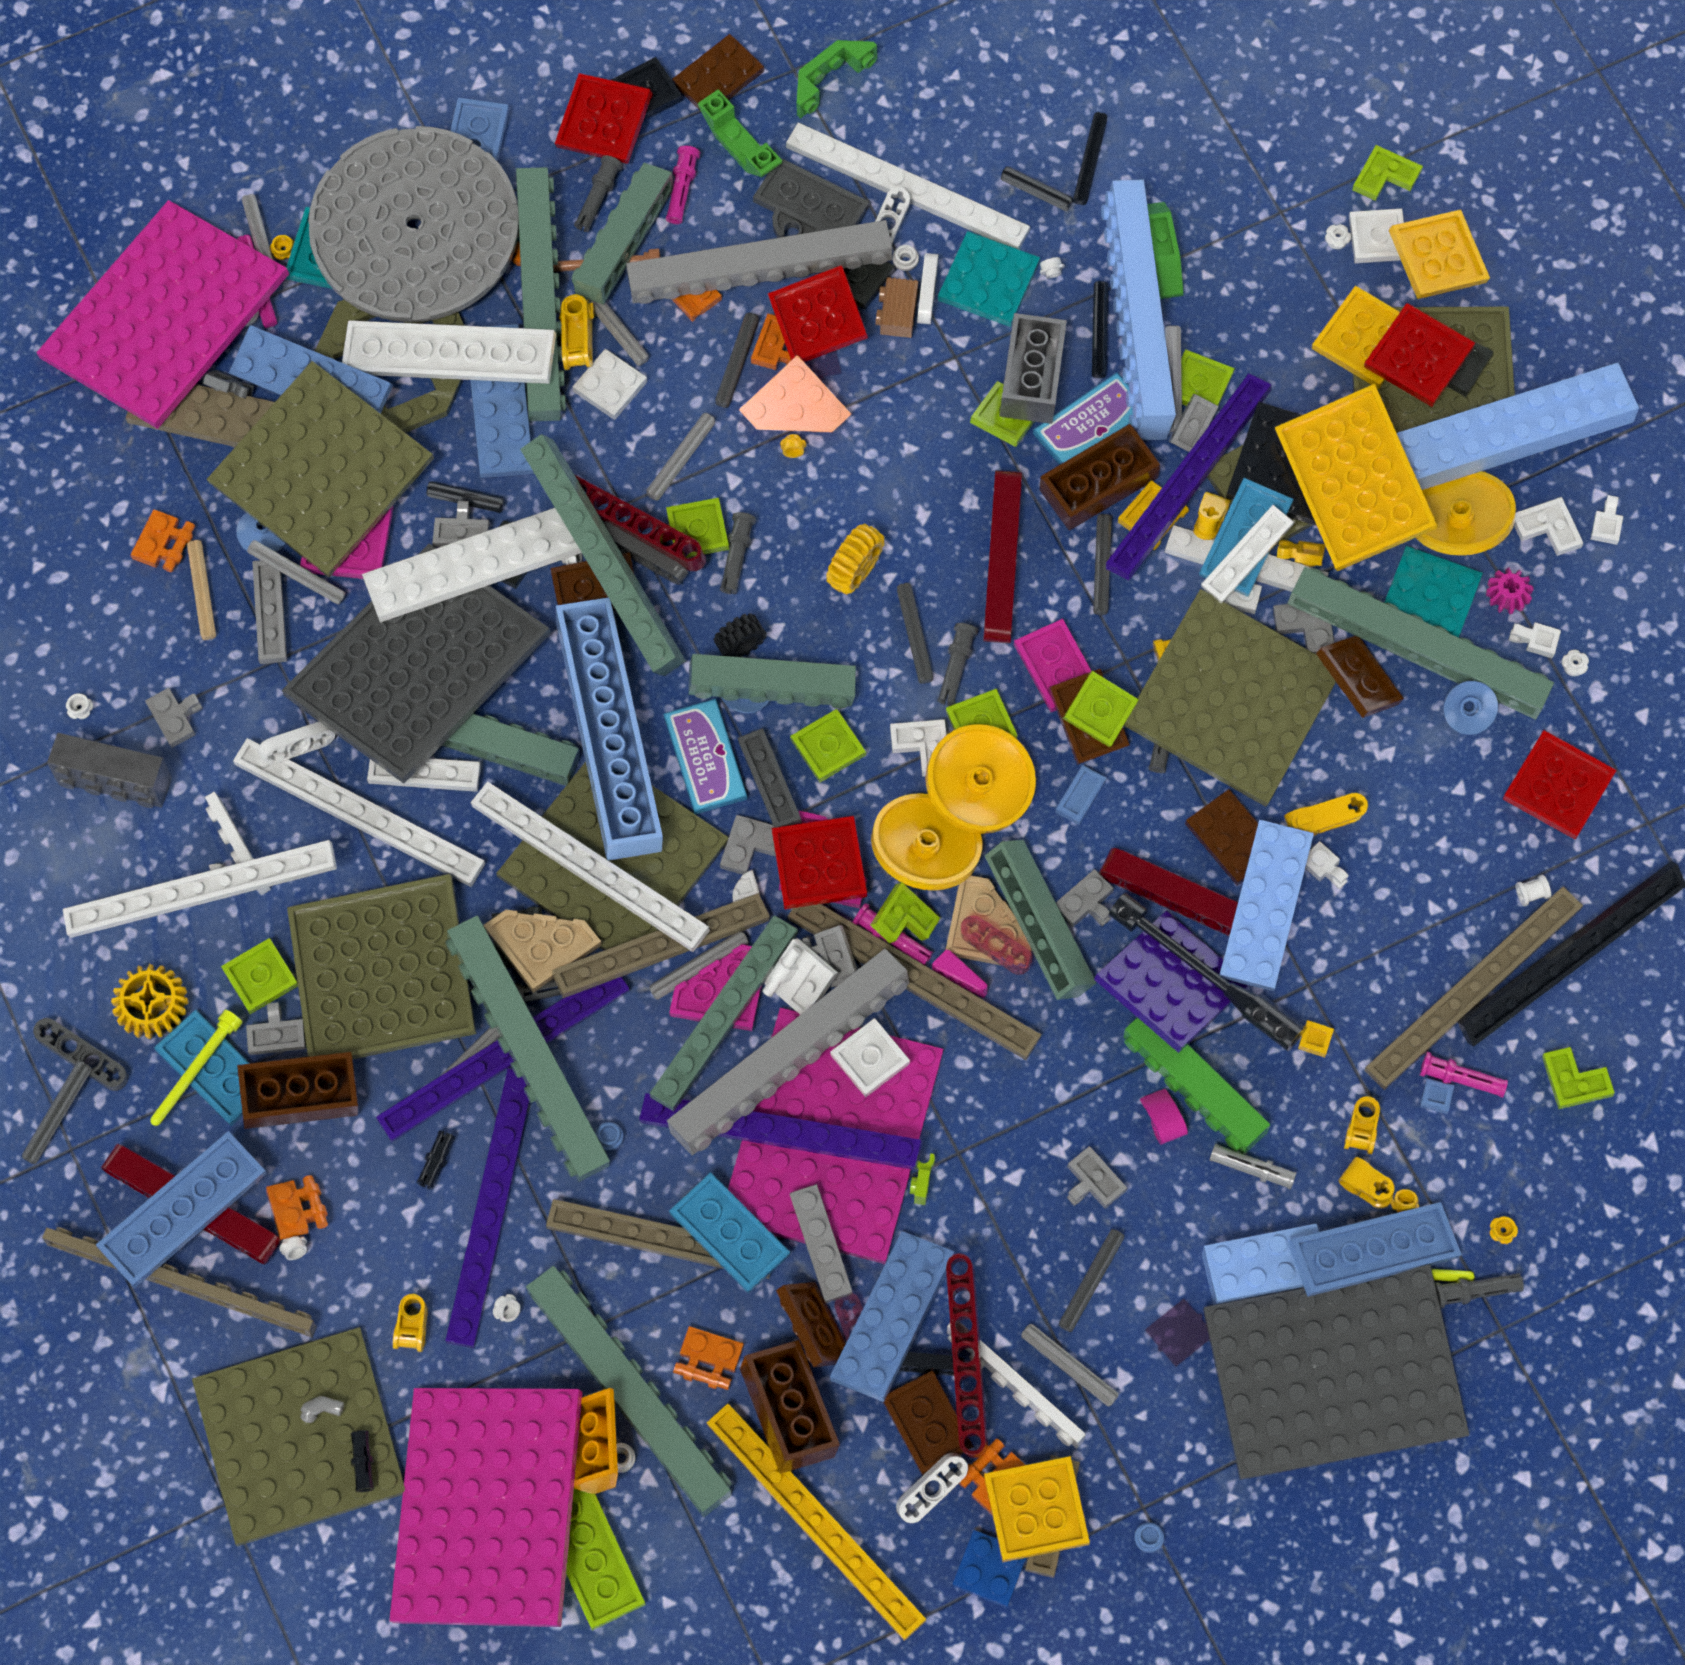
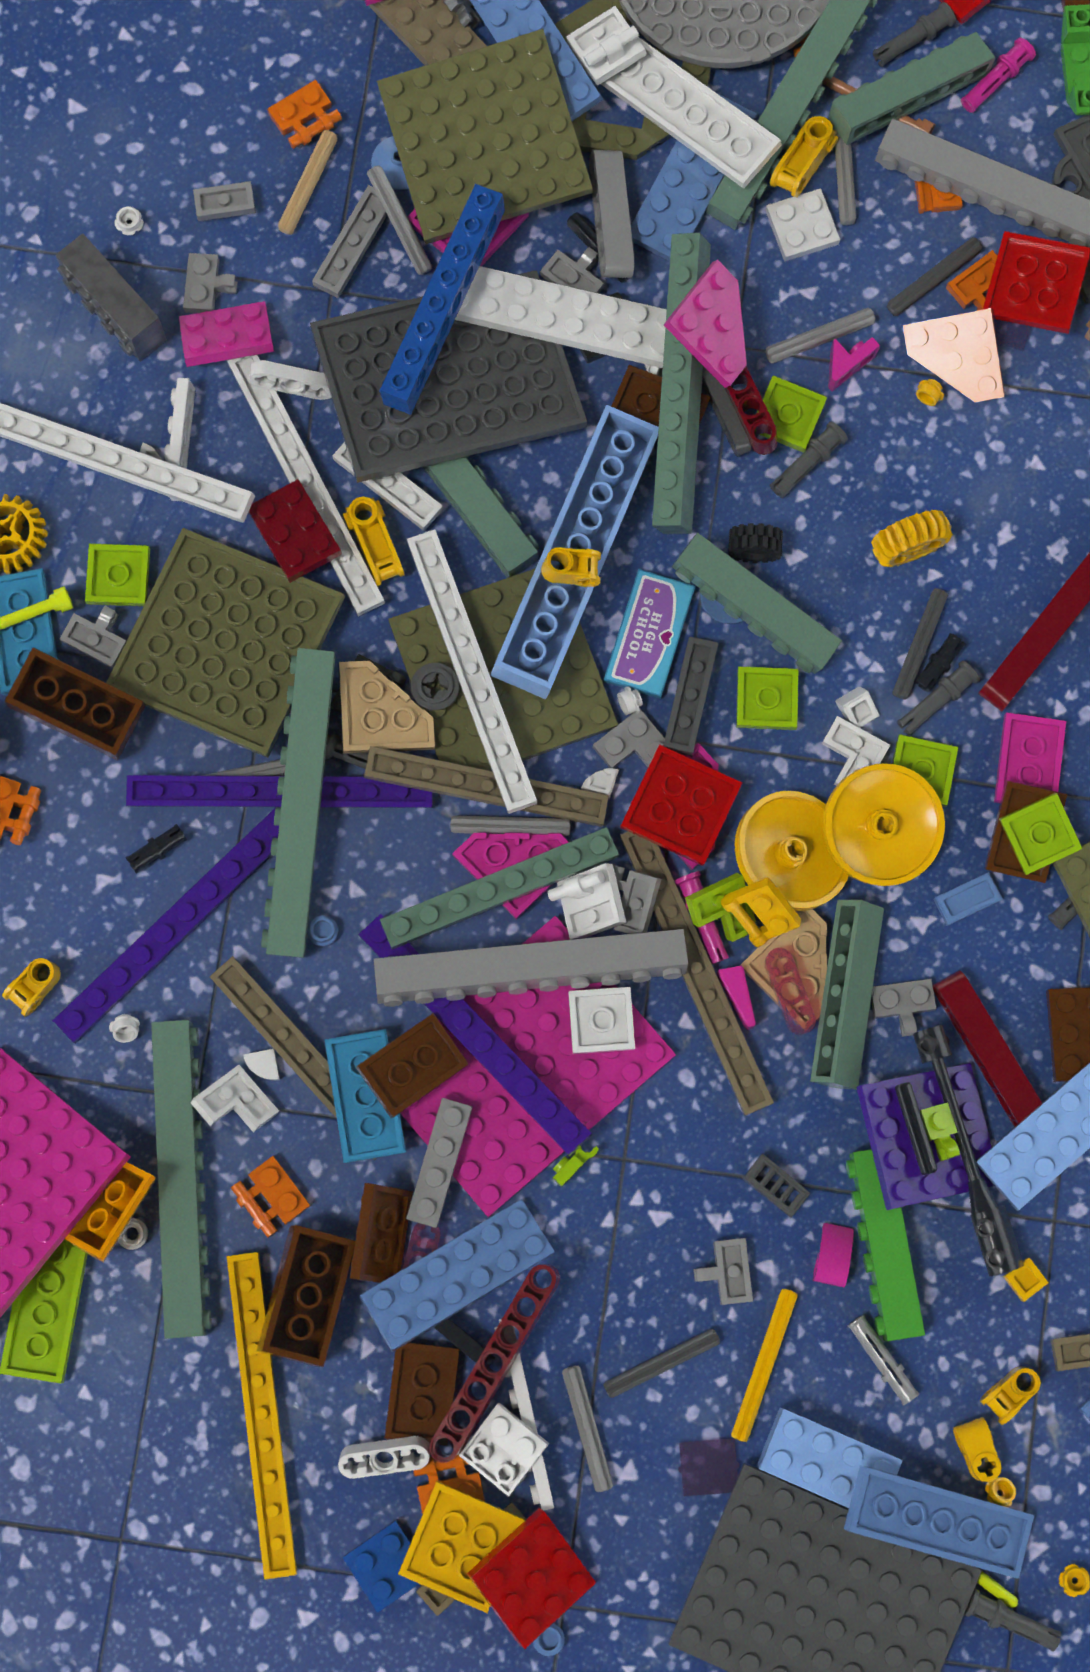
camera: 30 degrees right, 10 degrees up
(145, 644) = (224, 201): none -> light grey plate
(218, 742) = (226, 334): none -> dark pink plate
(369, 343) = (606, 45): none -> white plate
(377, 606) = (442, 299): none -> blue brick
(378, 852) = (294, 530): none -> dark red plate
(443, 820) = (374, 539): none -> yellow piece
(459, 466) = (611, 214): none -> light grey beam
(574, 886) = (426, 676): none -> dark grey gear
(596, 495) = (711, 324): none -> dark pink plate
(620, 734) = (578, 564): none -> yellow piece
(631, 1296) = (237, 1093): none -> white plate
(633, 1265) = (263, 1064): none -> white tile
(715, 464) = (846, 364): none -> dark pink slope
(725, 814) = (629, 701): none -> white plate
(750, 1183) = (412, 1065): none -> reddish brown plate
(900, 708) = (857, 707): none -> white slope
(938, 891) = (768, 905): none -> yellow plate
(939, 637) = (939, 662): none -> black pin
(1018, 1416) = (504, 1449): none -> white plate
(1085, 1084) = (756, 1168): none -> dark grey slope
(1105, 1496) = (531, 1578): none -> red plate
(1158, 977) = (916, 1128): none -> black axle
(1168, 1230) = (764, 1365): none -> yellow axle
(1175, 967) = (939, 1127): none -> lime plate

